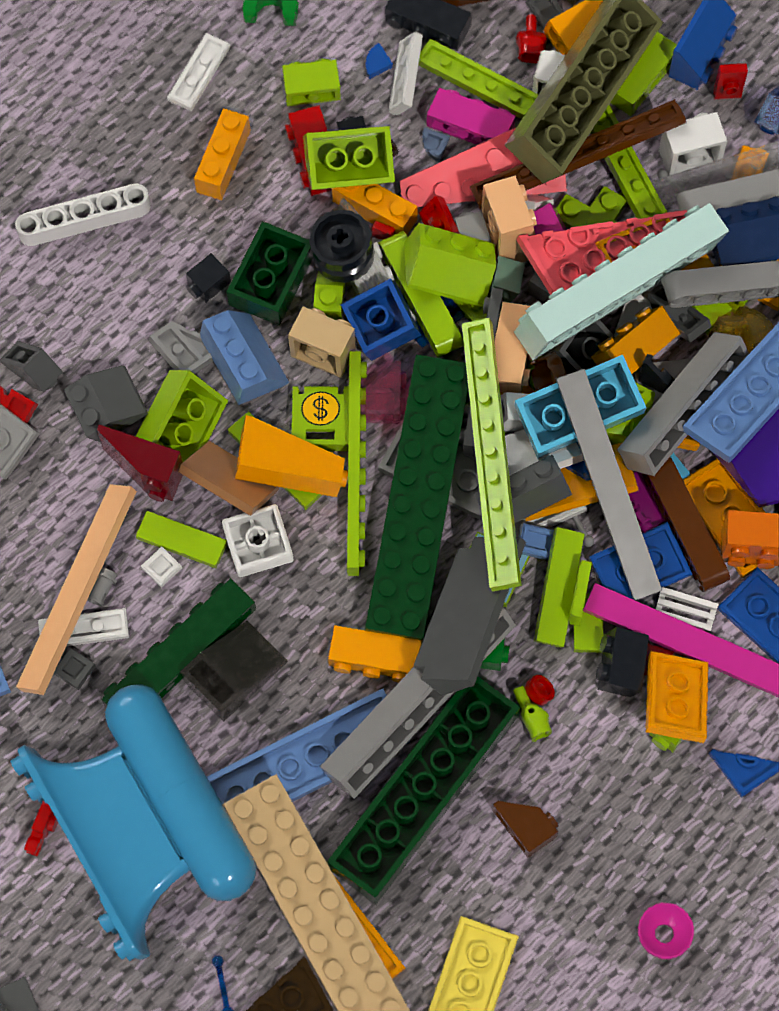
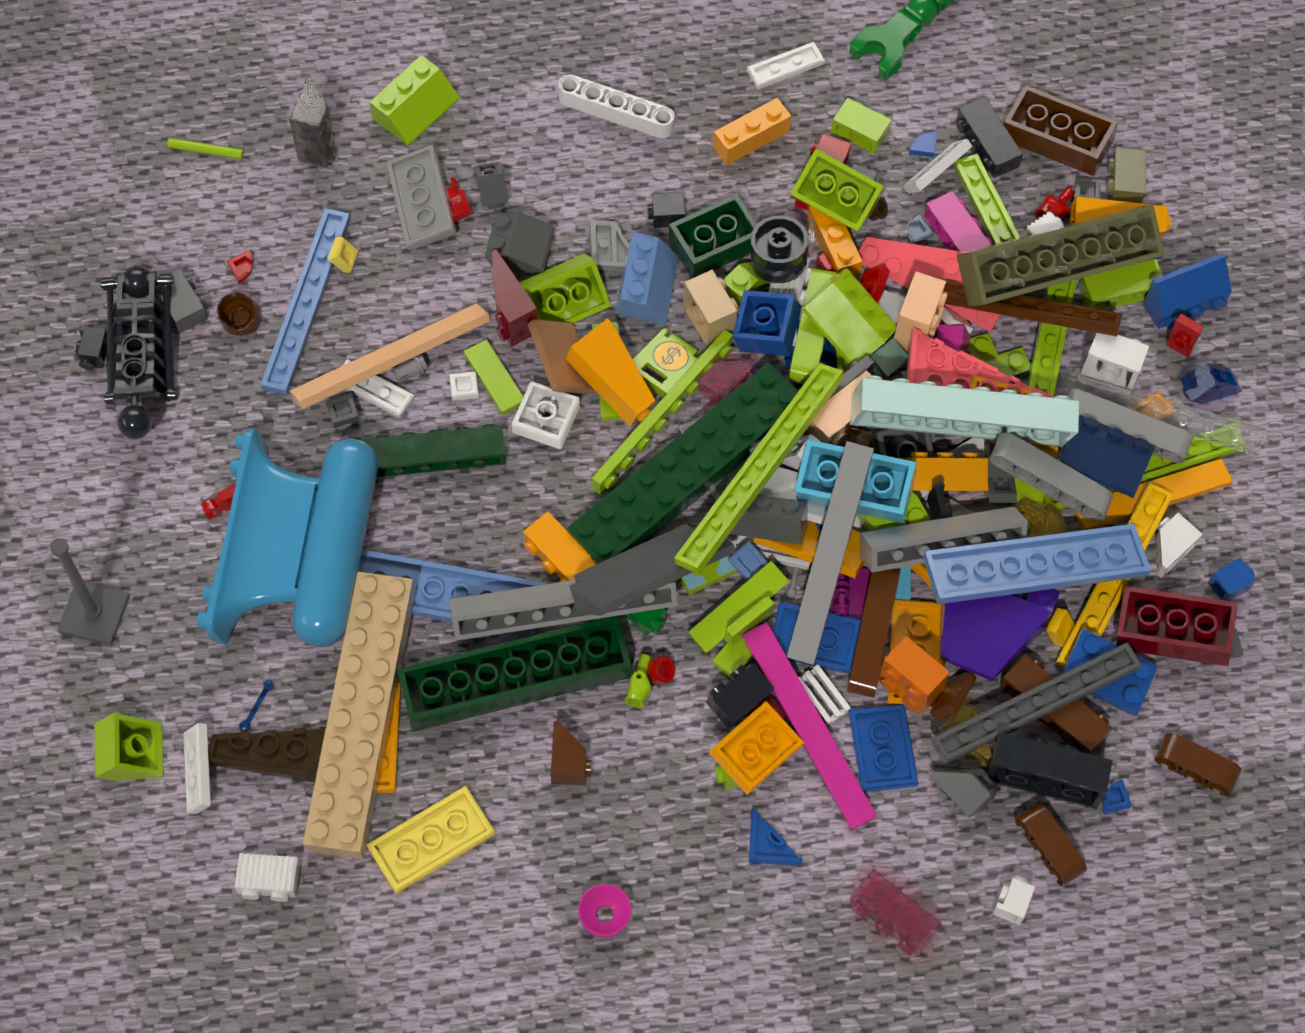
camera: 35 degrees right, 5 degrees down
(232, 669) = (451, 490): clear smoke slope -> none

